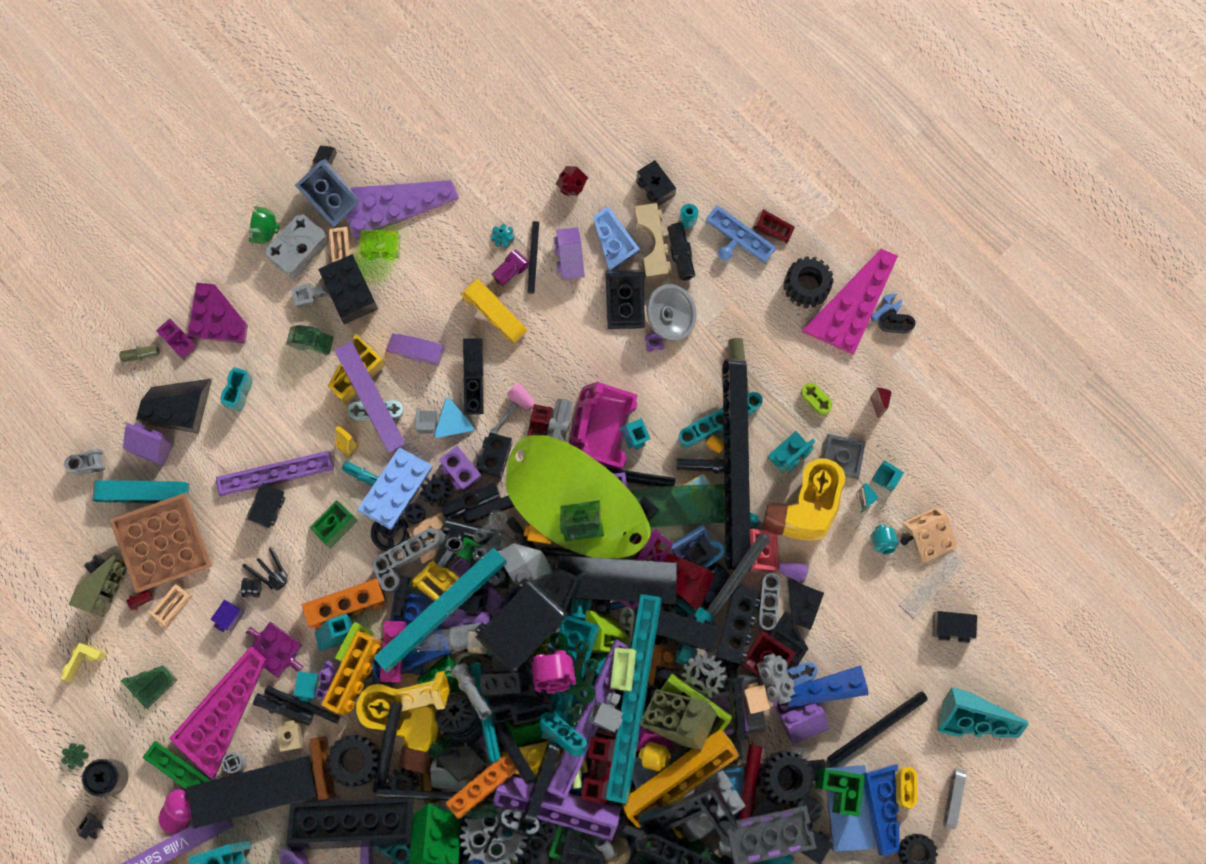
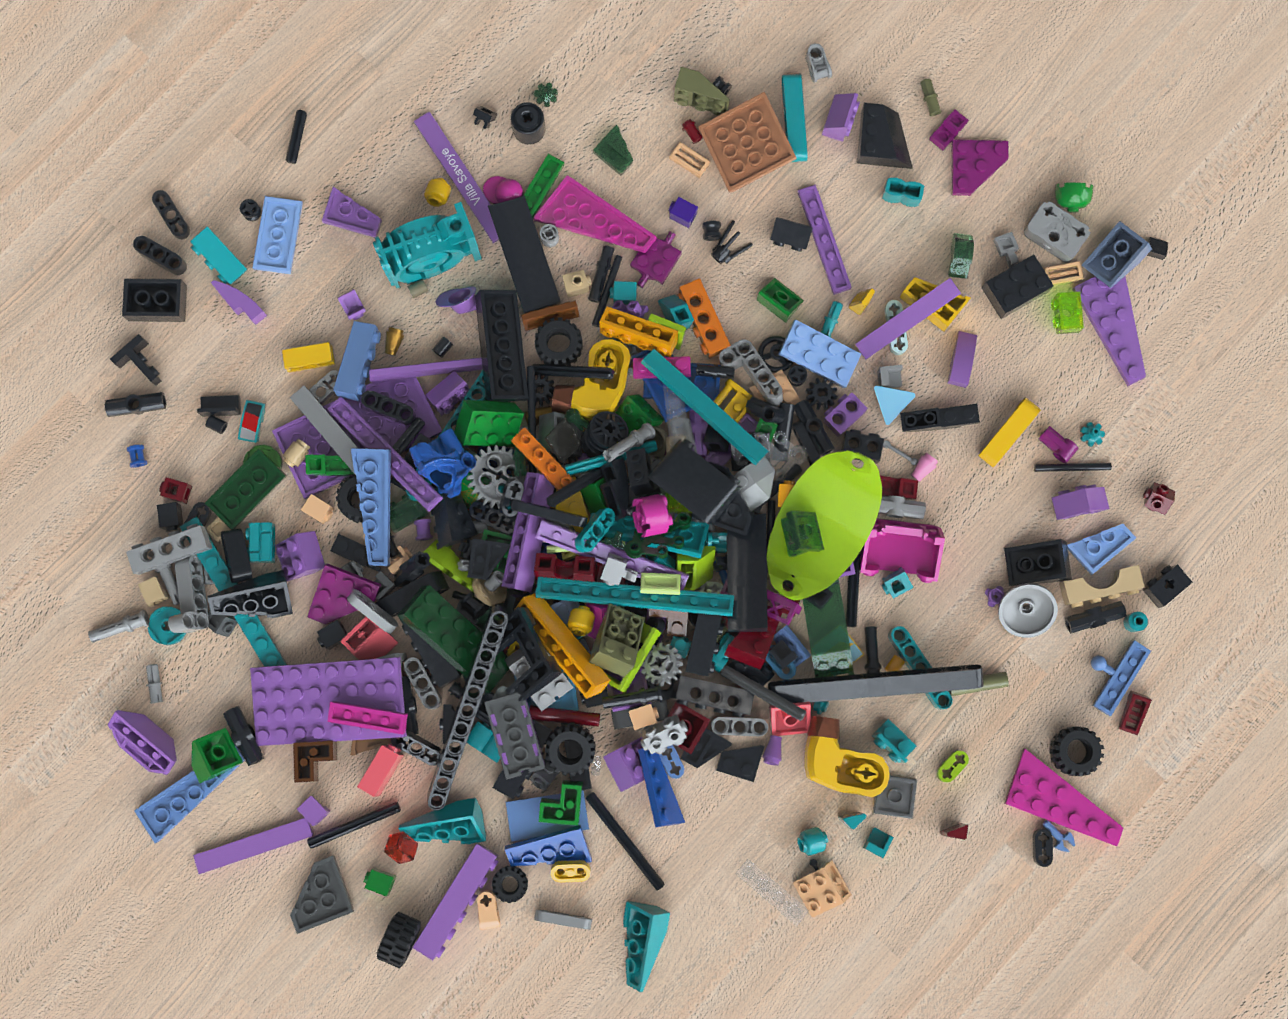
camera: 85 degrees right, 5 degrees up
(78, 653) = (638, 84): light yellow bracket -> none
(425, 693) = (623, 400): yellow bracket -> none
(955, 626) = (731, 915): black brick -> none

